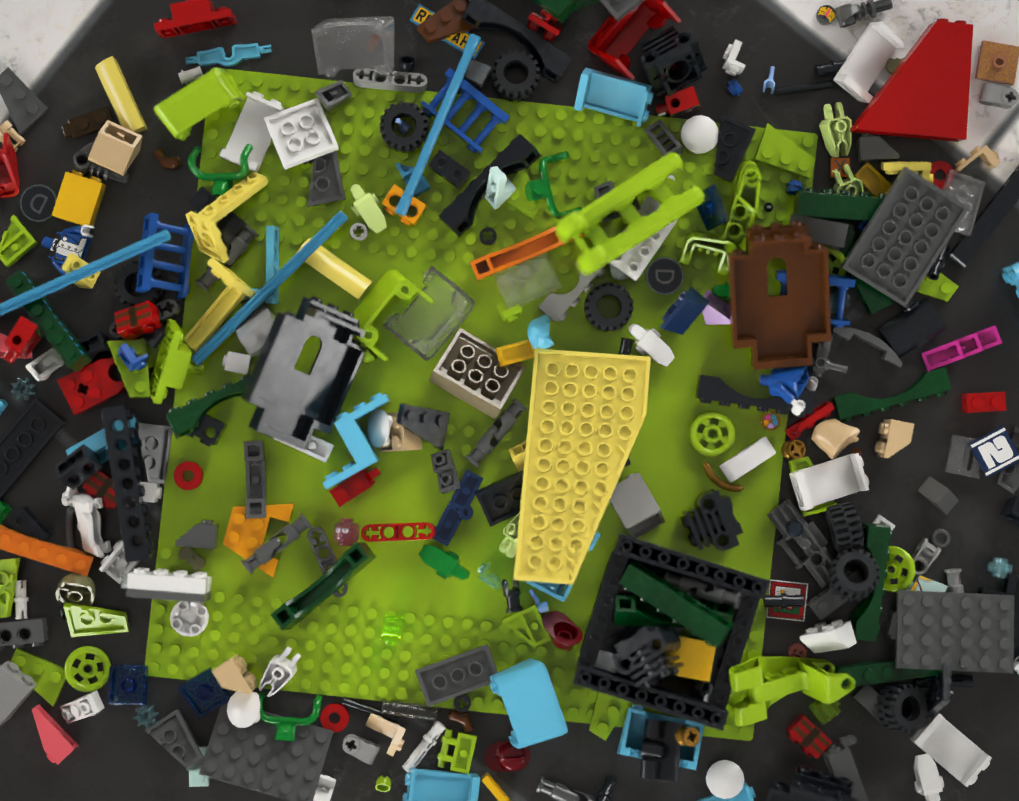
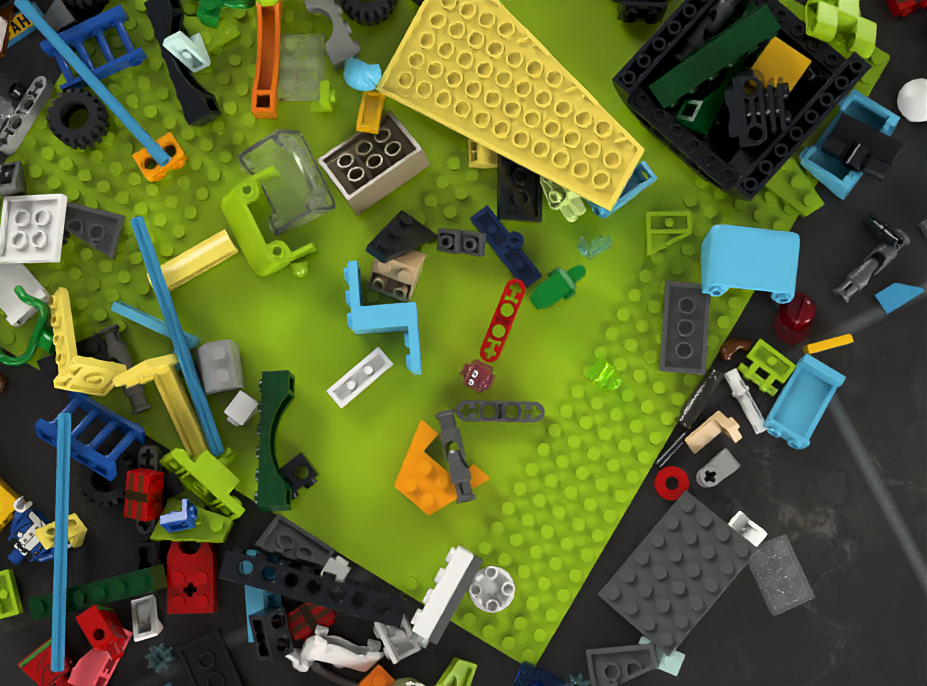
camera: 60 degrees left, 5 degrees down
(181, 482) = (330, 511): red piece -> none
(192, 558) = (433, 553): olive piece -> none
(200, 536) = (408, 535): dark grey slope -> none
(204, 693) = (581, 611): clear blue plate -> none
(235, 676) = (577, 568): tan slope -> none
(243, 709) = (618, 574): white dish -> none
(255, 479) = (375, 448): dark grey slope -> none
(280, 670) = (595, 516): white hinge -> none
(287, 725) = (657, 537): green piece -> none
(298, 402) = (306, 368): panel -> none
(340, 573) = (530, 442): dark green arch -> none
(354, 486) = (432, 346): red hinge -> none
(363, 235) = (159, 221): white bush -> none
(367, 207) = (145, 196): yellowish green hinge -> none
(379, 428) = (382, 288): white dish -> none
(383, 784) = (767, 462): lime hinge -> none
(402, 126) = (78, 121): light blue hand -> none
(406, 173) = (129, 141): dark azure slope -> none
(449, 170) = (146, 92): black brick -> none
(467, 700) = (718, 344): black bush -> none
(487, 230) = (242, 88): black bush -> none
(506, 421) = (451, 185): dark grey piece -> none
(512, 596) = (625, 231): black piece -> none
(542, 607) = (652, 205): light blue hand -> none
(562, 630) = (688, 195): dark red piece -> none
(636, 506) = (590, 57): light grey slope -> none
(684, 732) = (859, 111): pearl gold wheel -> none

